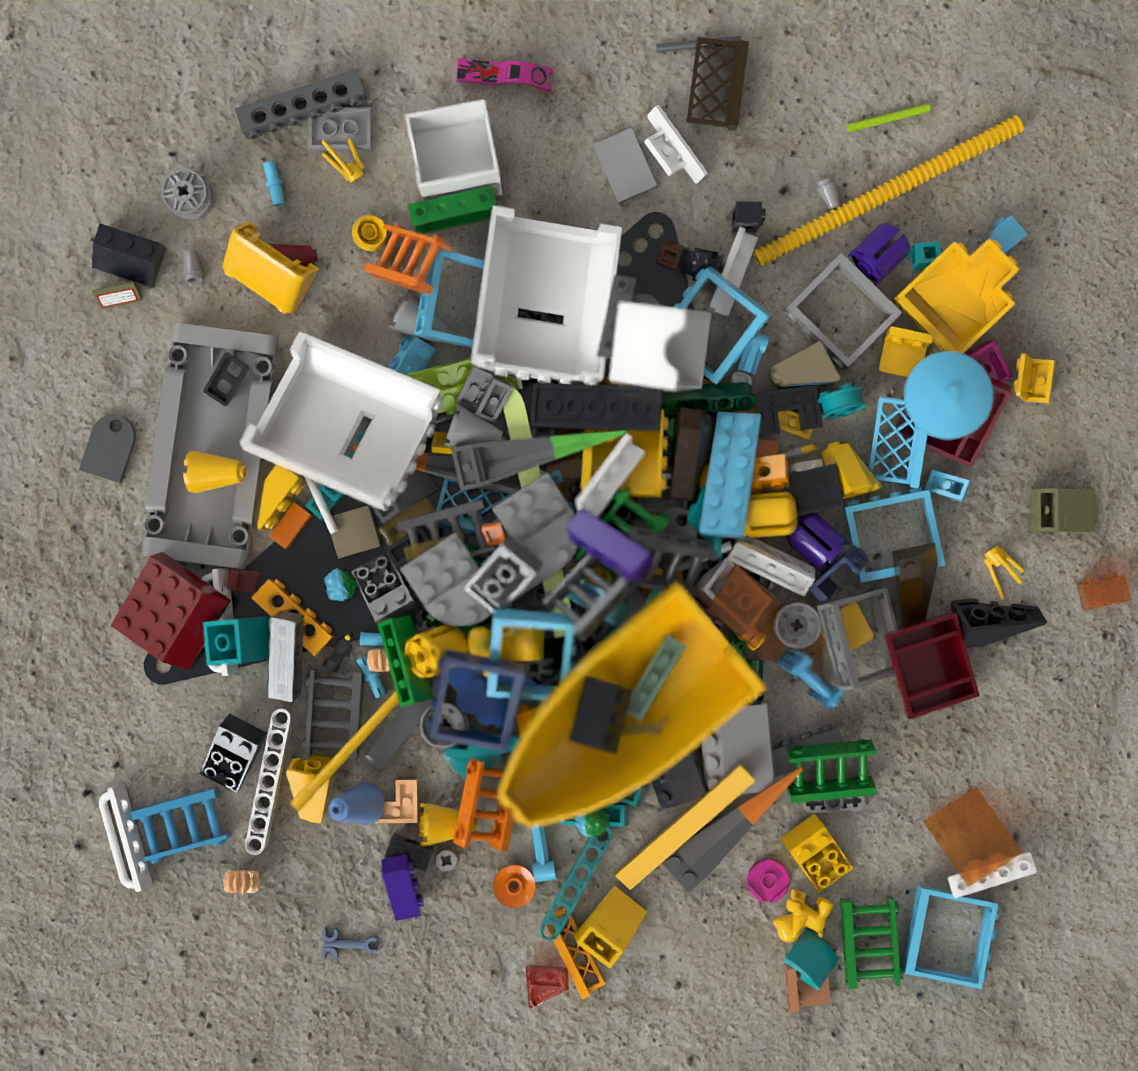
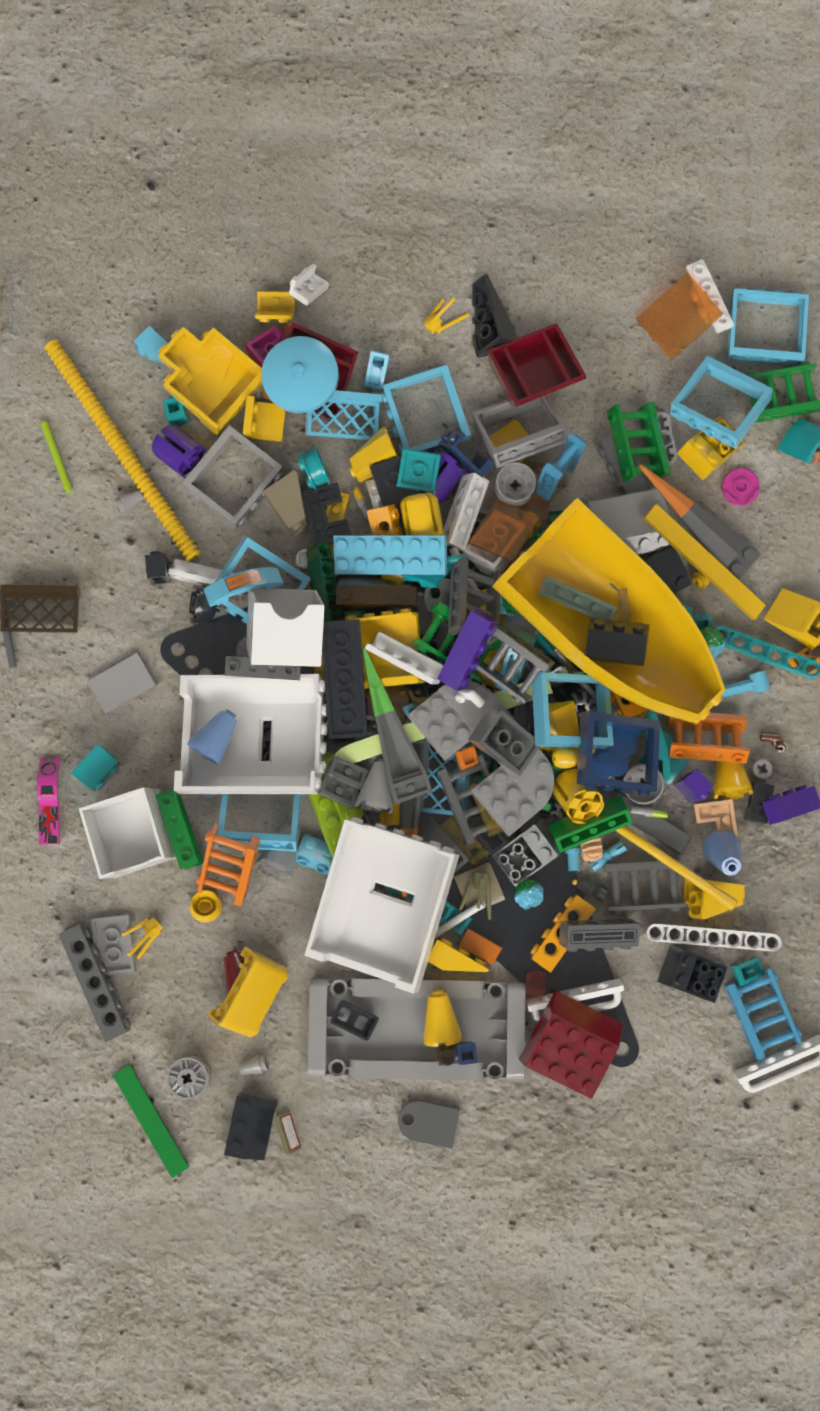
camera: 100 degrees left, 5 degrees down
(147, 150) = (151, 1121): none -> green tile
(174, 489) = (459, 1053): none -> dark blue hips
(228, 813) = (747, 971): none -> teal slope
(237, 640) = (591, 979): teal slope -> none
(241, 881) = (806, 950): light nougat gear -> none
(274, 183) = (169, 999): medium azure pin -> none
(358, 533) = (480, 882): none -> olive plant
(412, 727) = (648, 812): none -> light grey piece
(434, 781) = (694, 786): none -> dark purple brick
(478, 880) = (775, 739): none -> reddish brown arm
(511, 896) = (785, 703): orange dish -> none
(532, 127) = (96, 768): none -> teal slope
(549, 258) = (214, 736): none -> medium blue cone
(560, 543) = (466, 694): none -> white arm
(665, 819) = (700, 580): none -> yellow plate
(670, 254) = (197, 634): reddish brown slope -> none
(671, 148) = (102, 643): white bracket -> none
(716, 306) = (242, 582): none -> medium azure slope
(752, 354) = (284, 552): medium azure piece -> none
(767, 448) = (362, 527): orange tile -> none
(791, 926) = (778, 462): yellow animal -> none
(823, 517) = (418, 470): none -> teal tile
(890, 891) = (732, 378): none -> medium azure window
(915, 577) = (462, 389): dark brown wedge -> none
(1054, 418) = (307, 285): none -> white bracket
(1061, 510) = (387, 272): olive slope -> none
(1103, 592) = (453, 228): clear orange brick -> none

